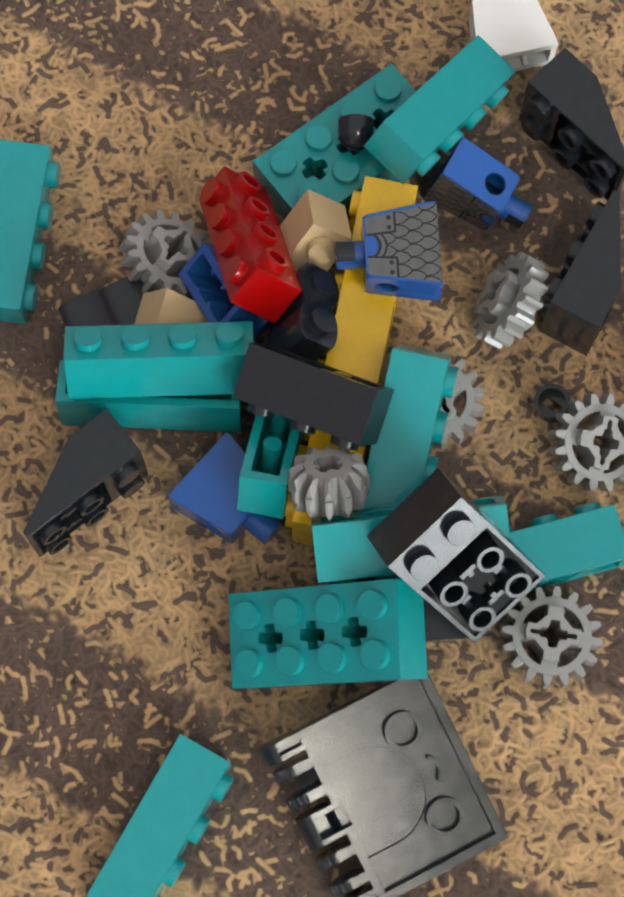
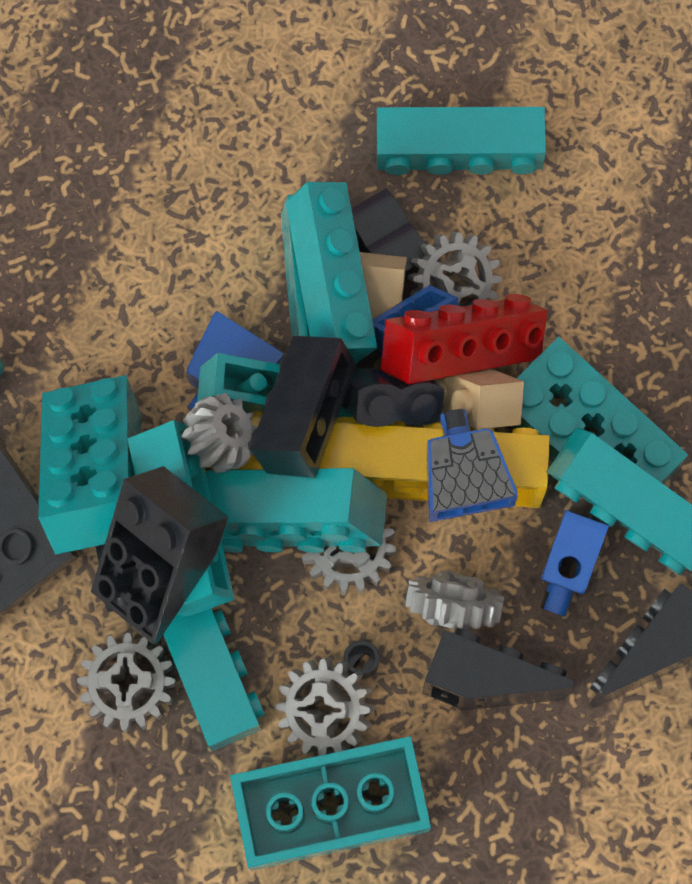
camera: 85 degrees right, 0 degrees up
(89, 475) = (219, 235): black slope -> none
(355, 131) = (597, 421): black hinge -> none

